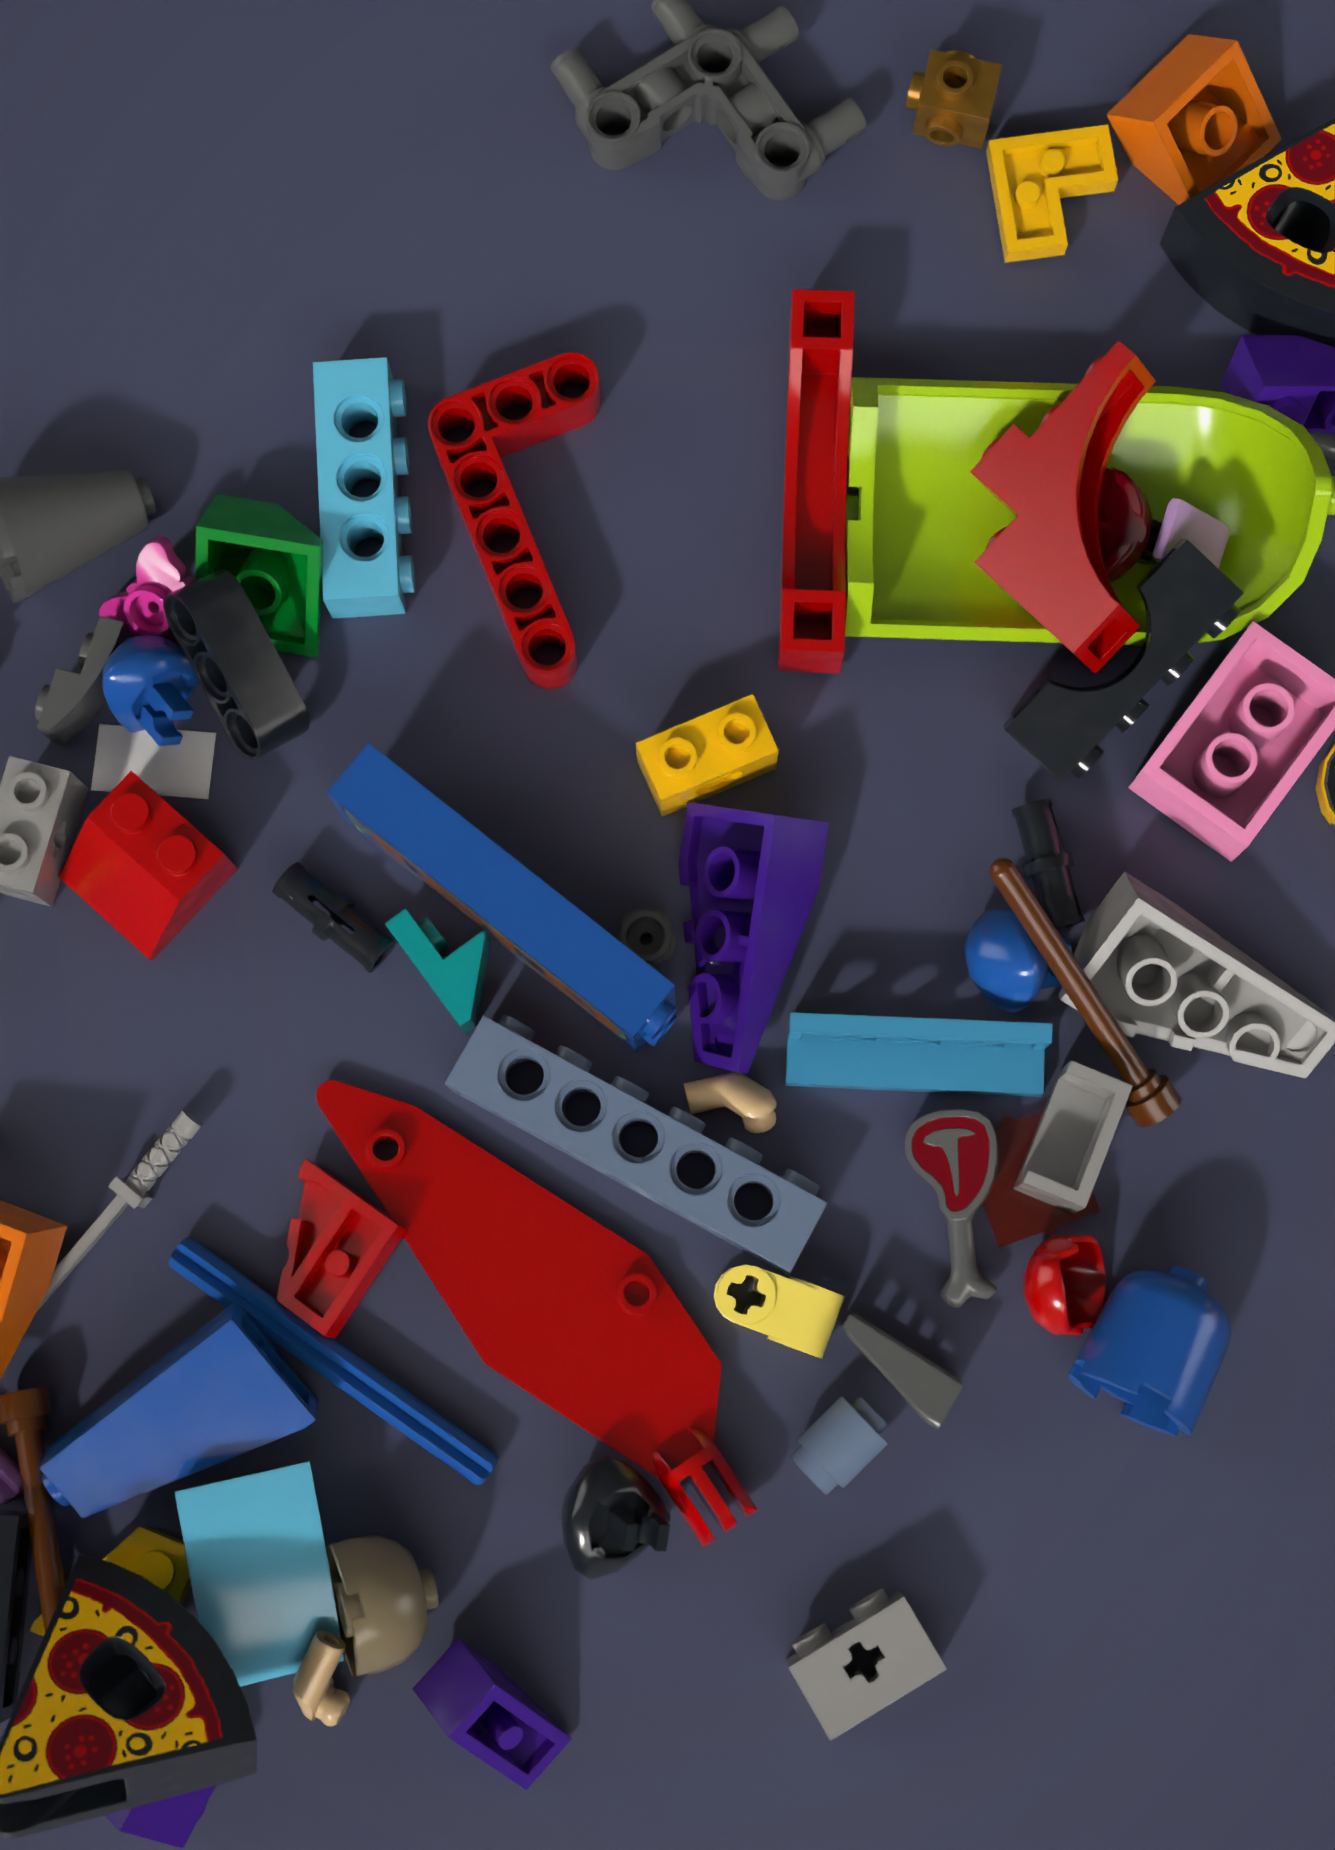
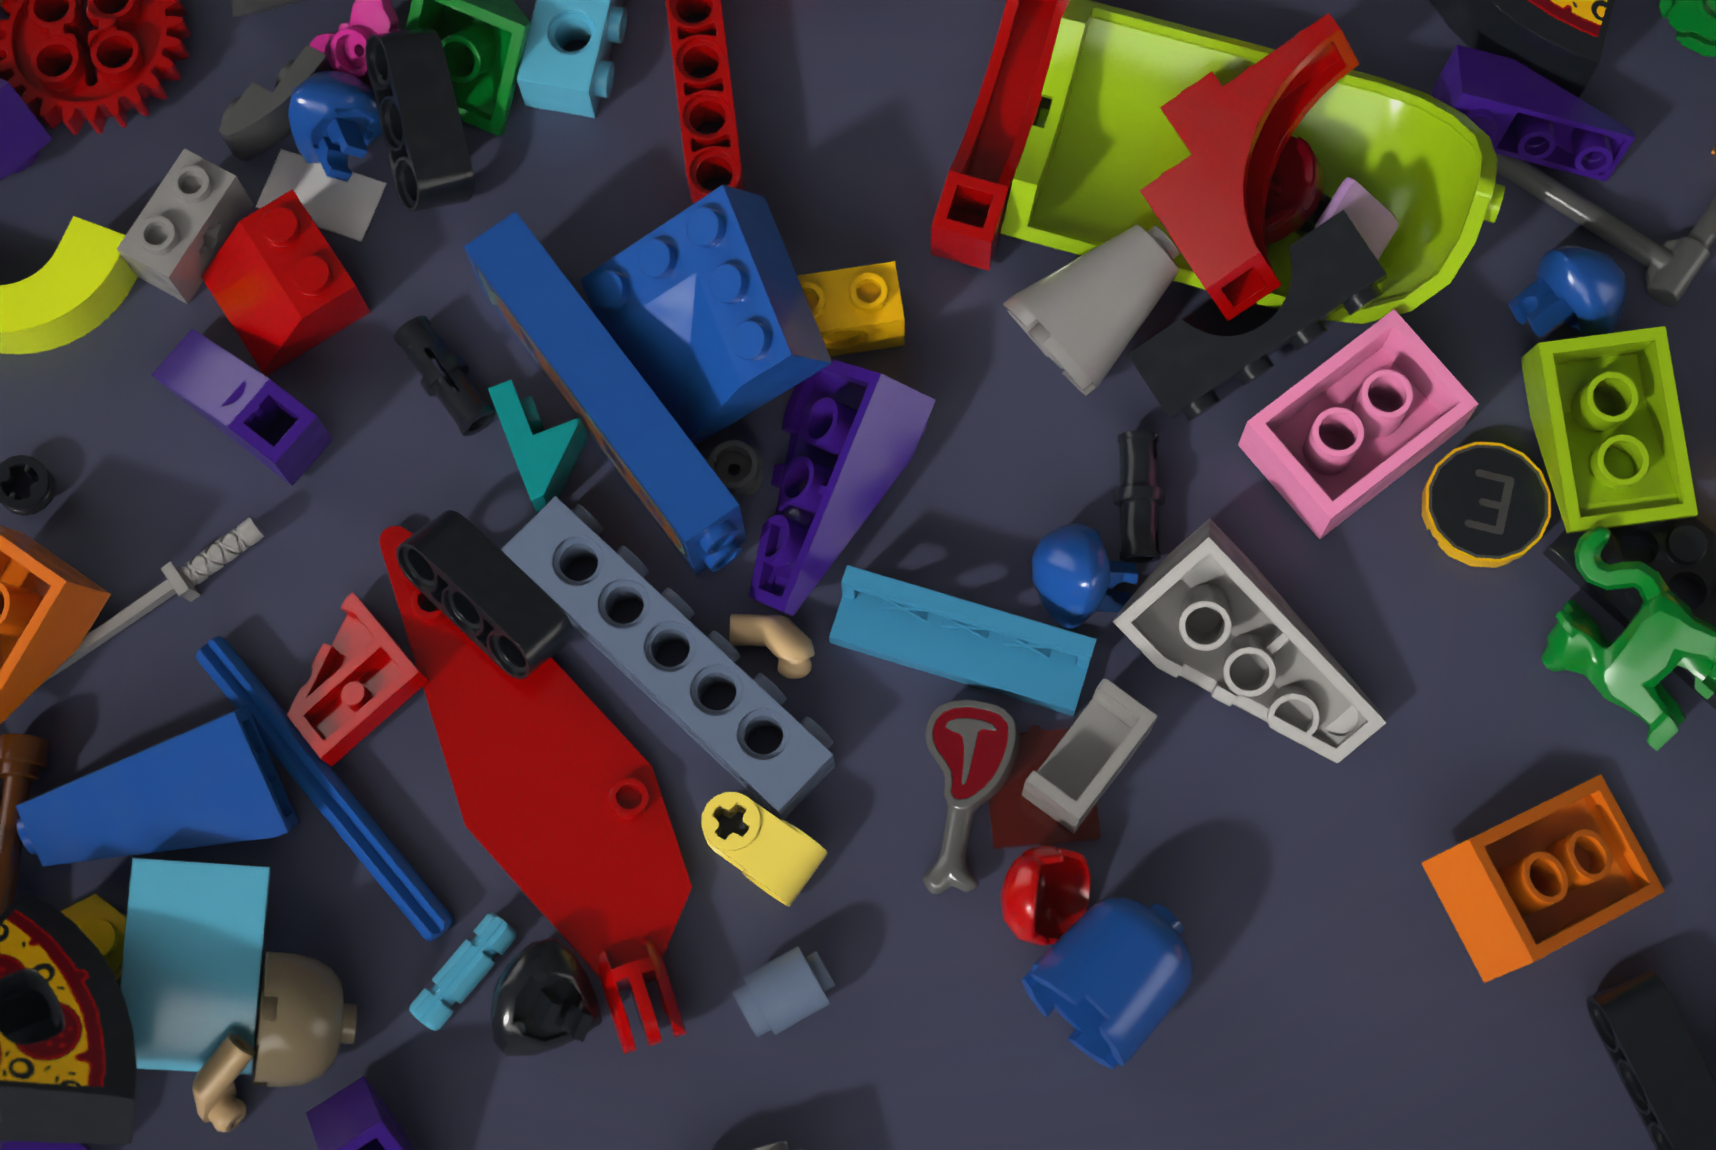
camera: 15 degrees right, 5 degrees down
(140, 998) = (244, 405): none -> dark purple slope
(440, 1130) = (484, 594): none -> black beam
(522, 1506) = (463, 971): none -> medium azure axle
(586, 792) = (710, 312): none -> blue slope
(916, 1379) = (874, 946): dark grey slope -> none
(962, 686) = (1096, 303): none -> light grey cone
(1152, 1094) = (1175, 735): reddish brown piece -> none

